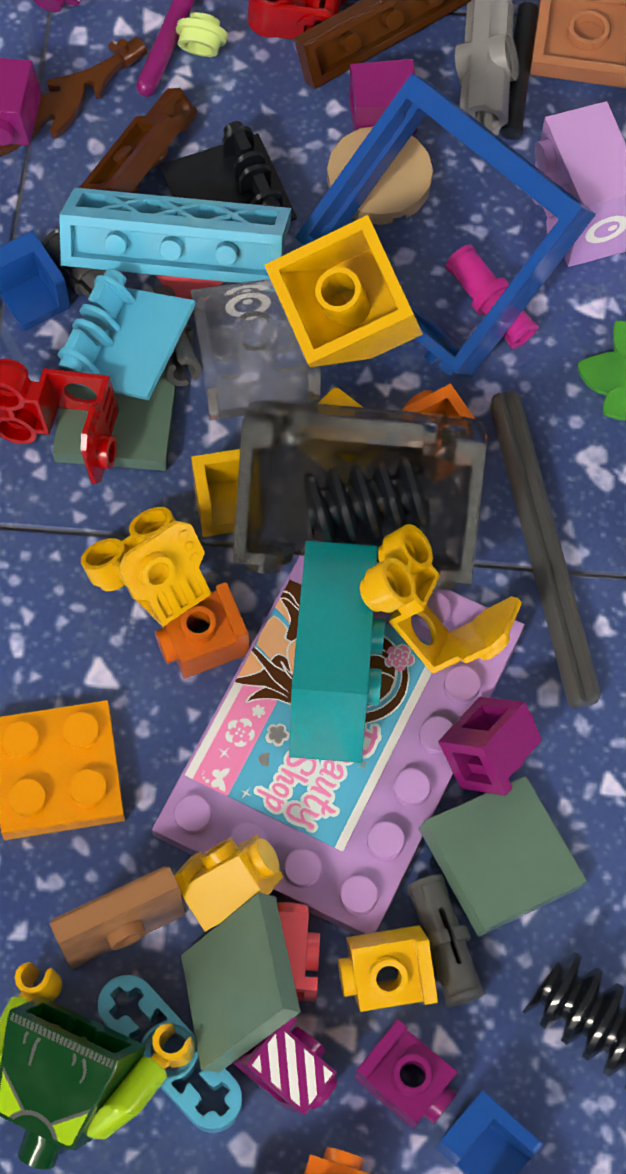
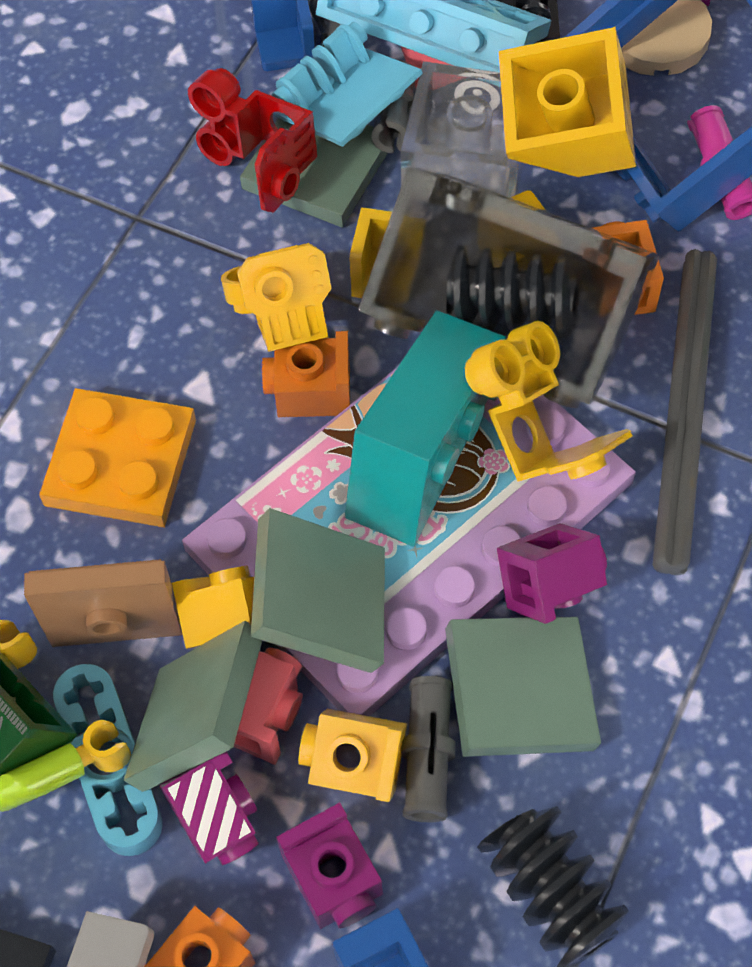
camera: 25 degrees right, 5 degrees down
(305, 839) = (319, 591): none -> sand green tile

